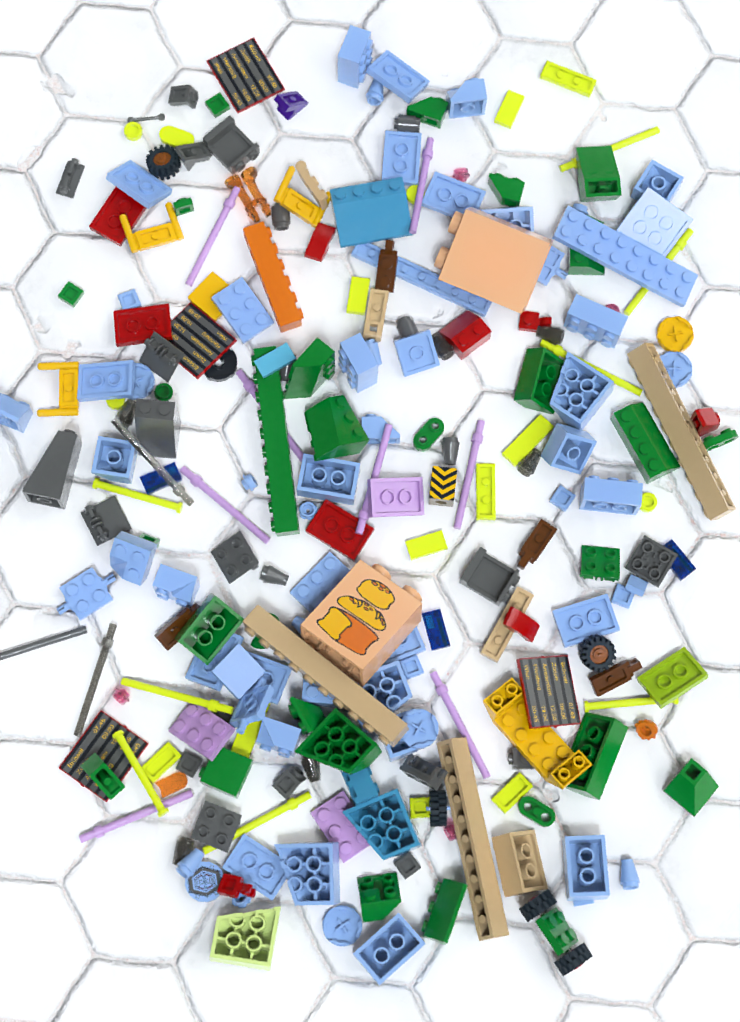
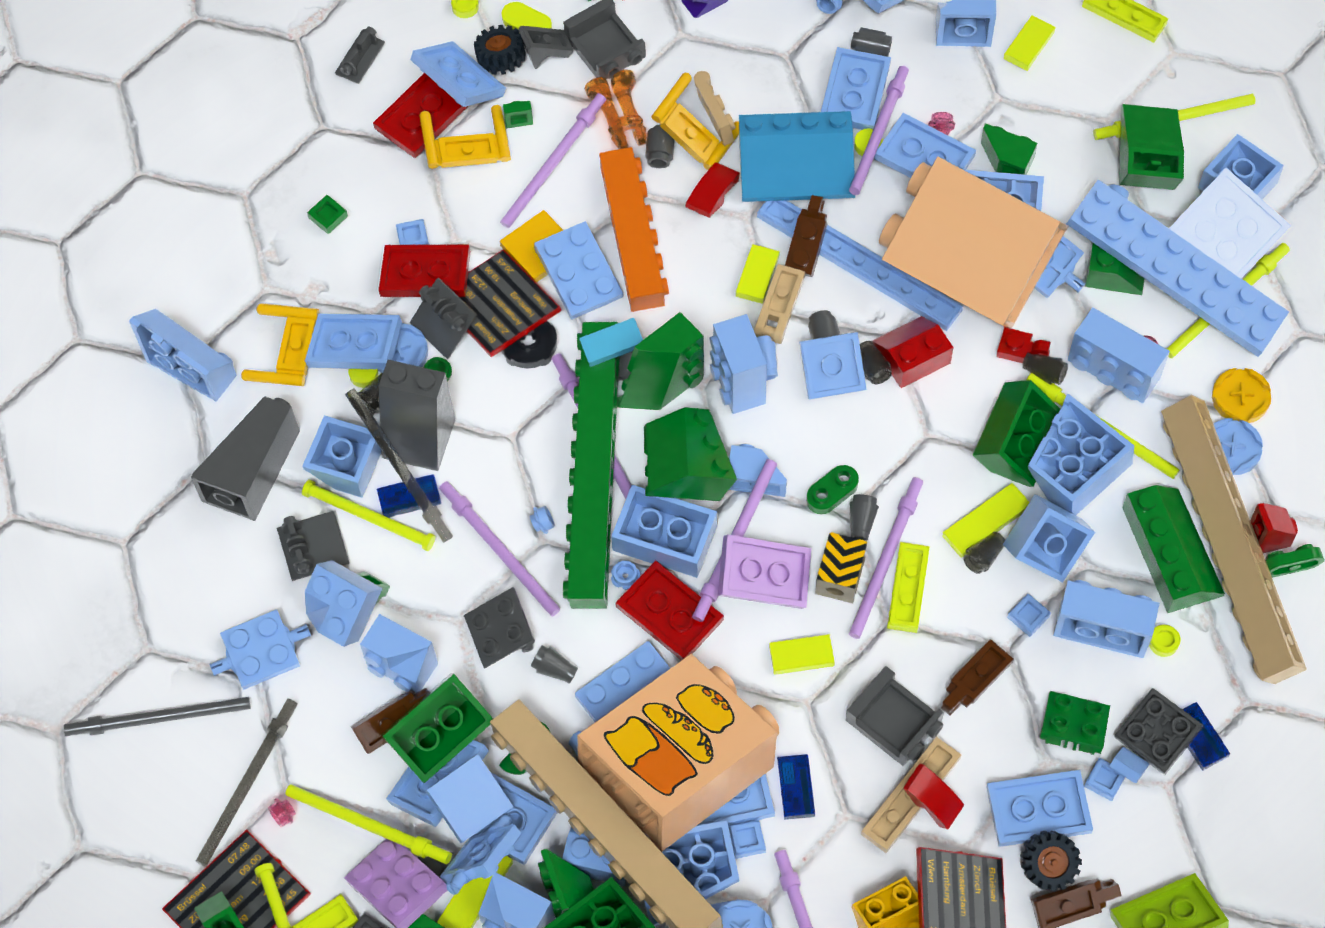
camera: 15 degrees right, 10 degrees down
(430, 111) = (909, 28): green slope -> none

